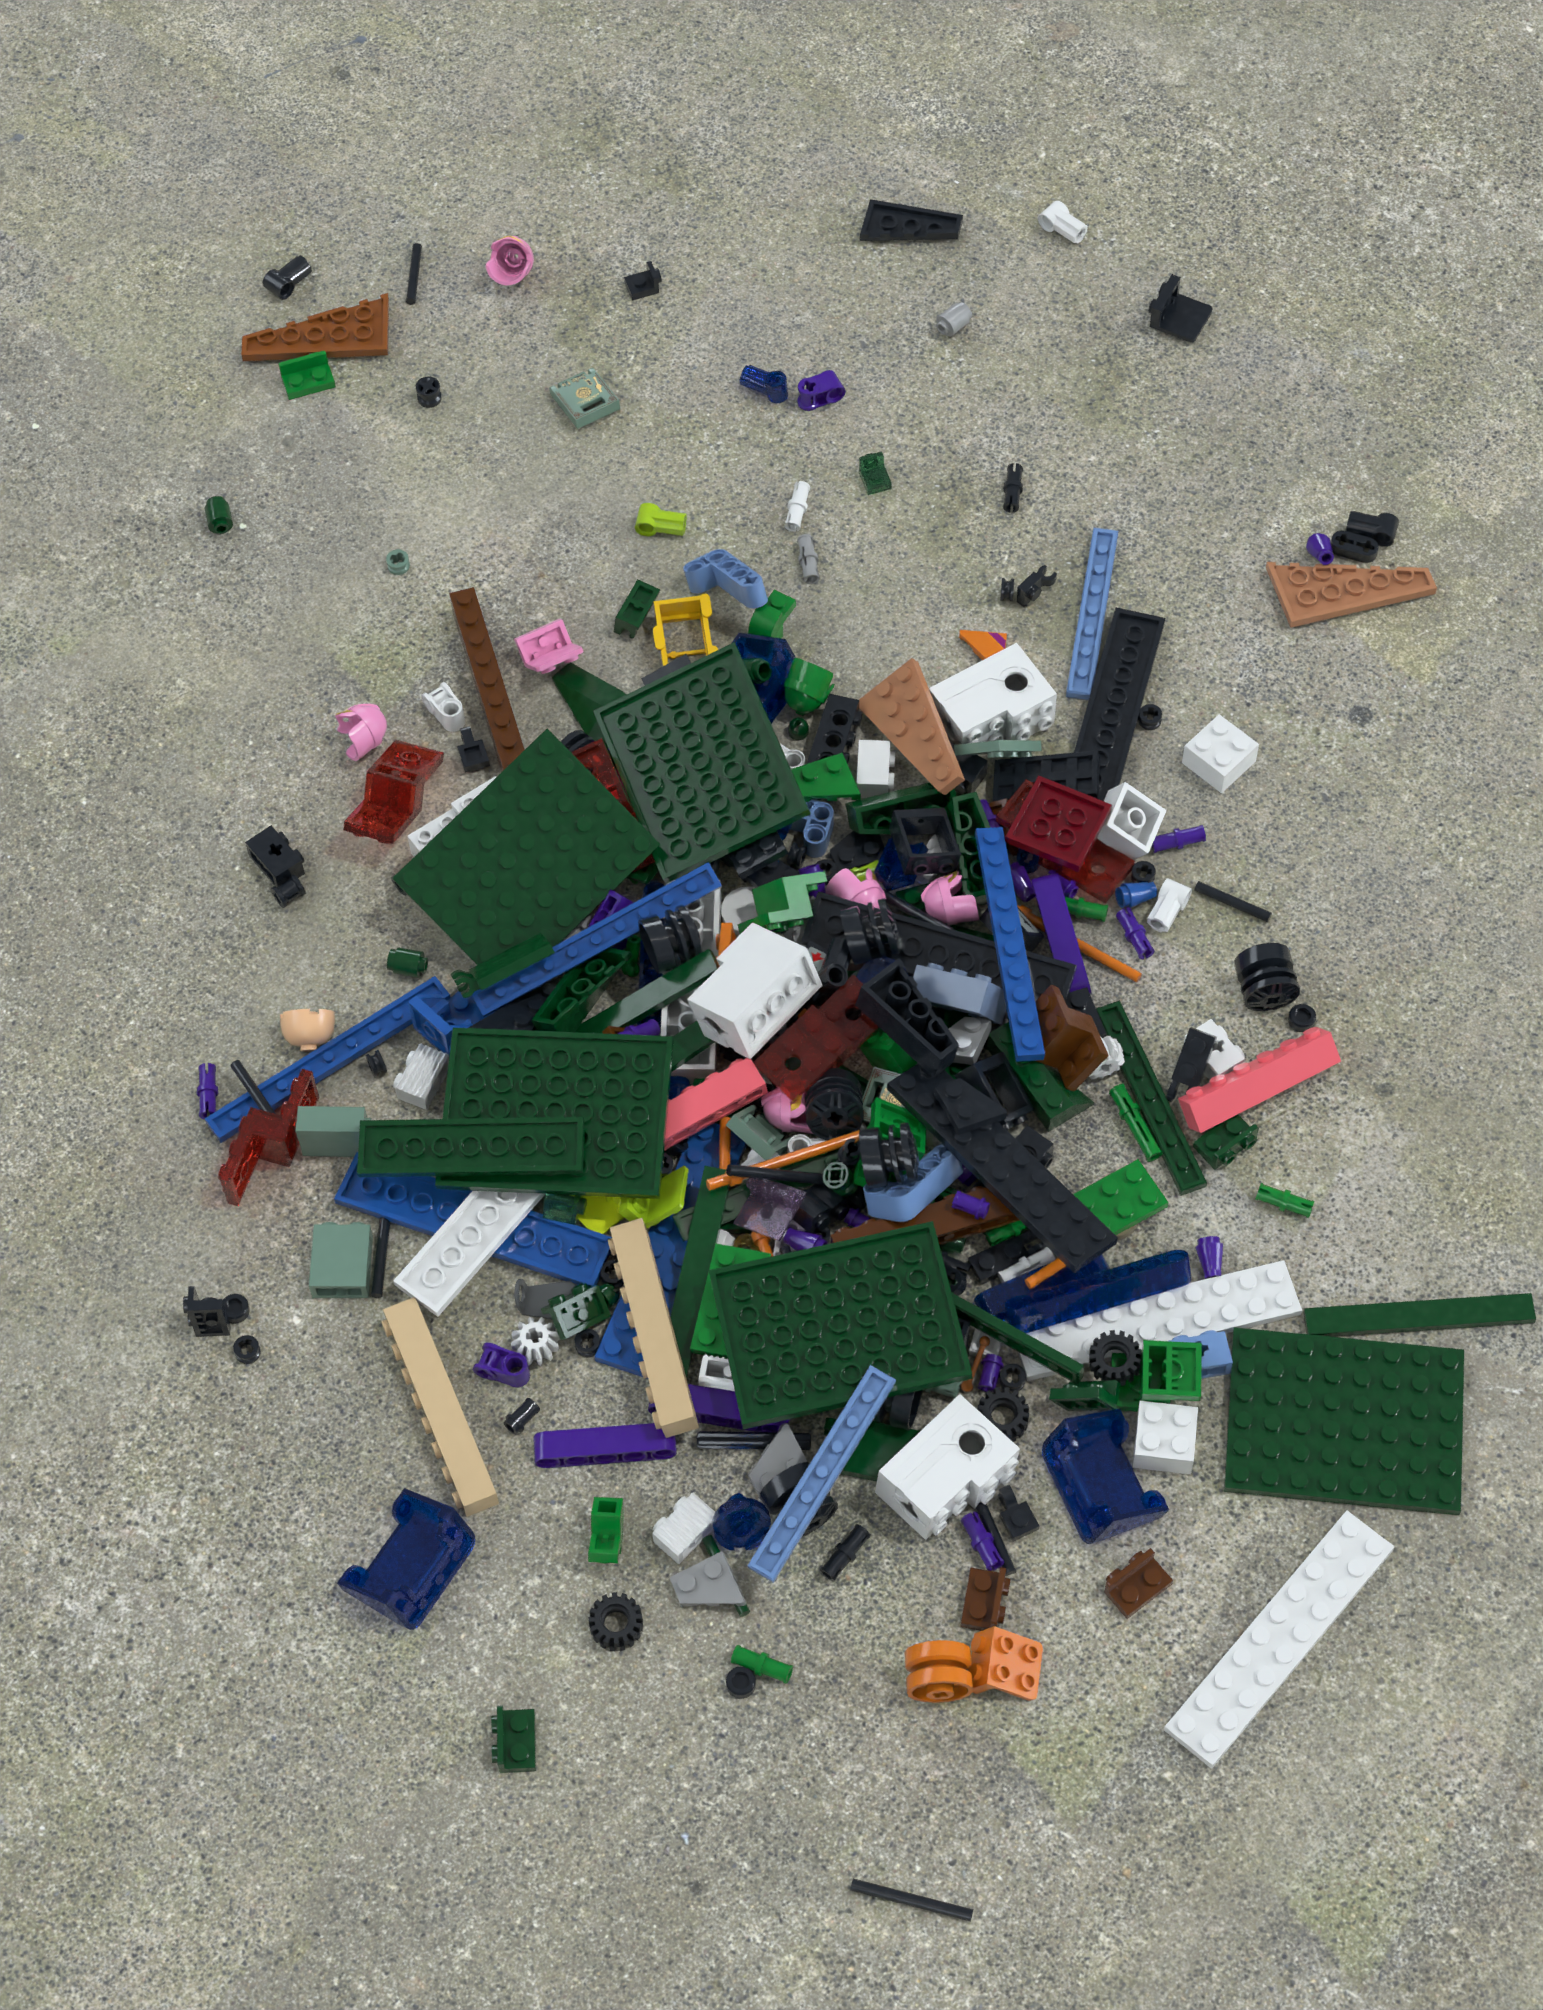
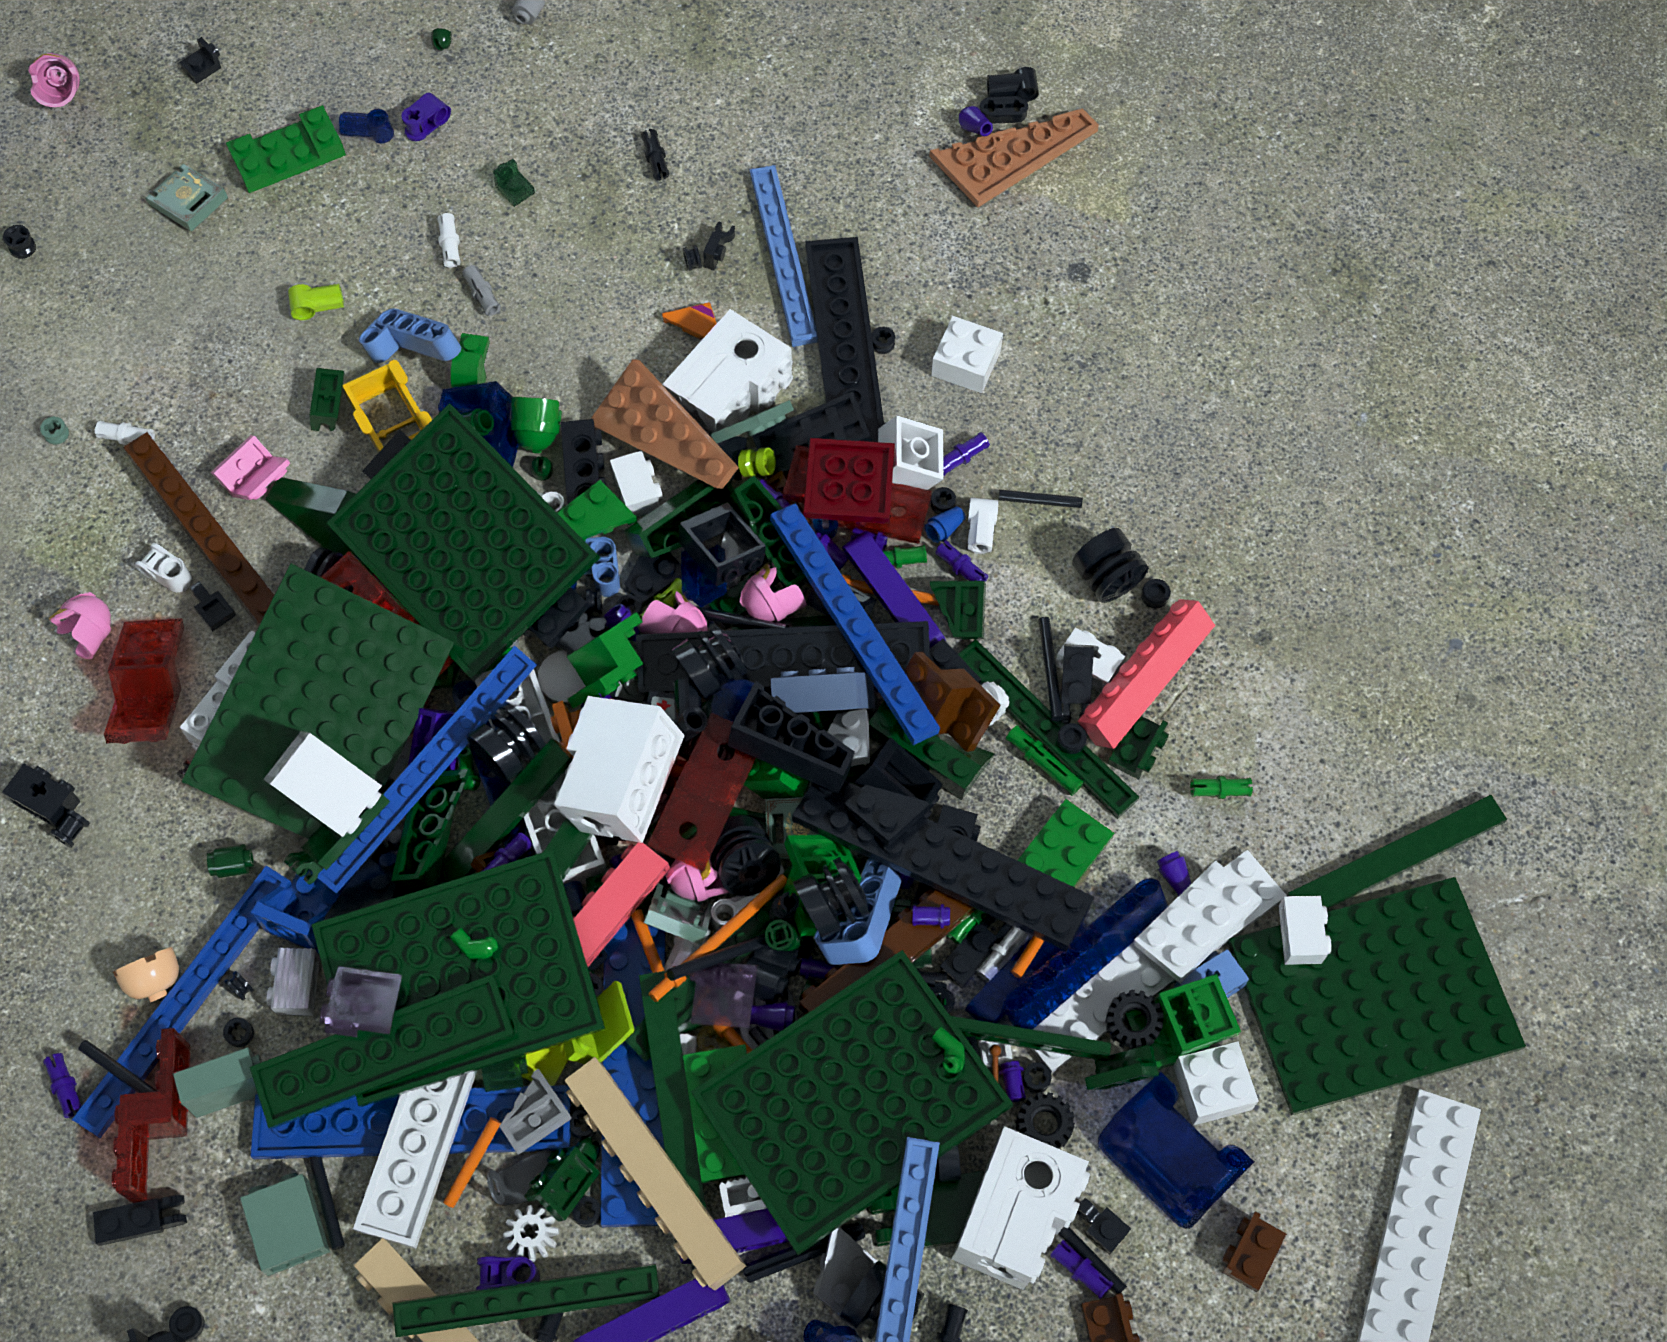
camera: 25 degrees left, 5 degrees up
(226, 1215) = (136, 1220): none -> black hinge
(359, 1092) = (230, 1025): none -> black bush
(451, 581) = (123, 432): none -> white pin
(467, 1099) = (360, 1001): none -> plate
(504, 915) = (324, 783): none -> white piece
(509, 1268) = (472, 1162): none -> orange bar
(510, 1386) = (525, 1300): none -> dark green tile
(574, 1248) = (534, 1114): none -> light grey wing
(577, 1092) = (474, 948): none -> green arm
(687, 383) = (286, 150): none -> green piece
(862, 325) = (441, 38): none -> dark green hinge
(939, 1314) = (953, 1051): none -> green arm
(987, 783) = (756, 462): none -> lime wheel
(1118, 968) = (962, 606): none -> dark green wing
(1167, 1112) = (1071, 738): none -> black tile
(1175, 1048) = (1050, 669): none -> black bar
(1209, 1299) = (1197, 921): none -> white plate
(1299, 1338) = (1304, 930): none -> white brick

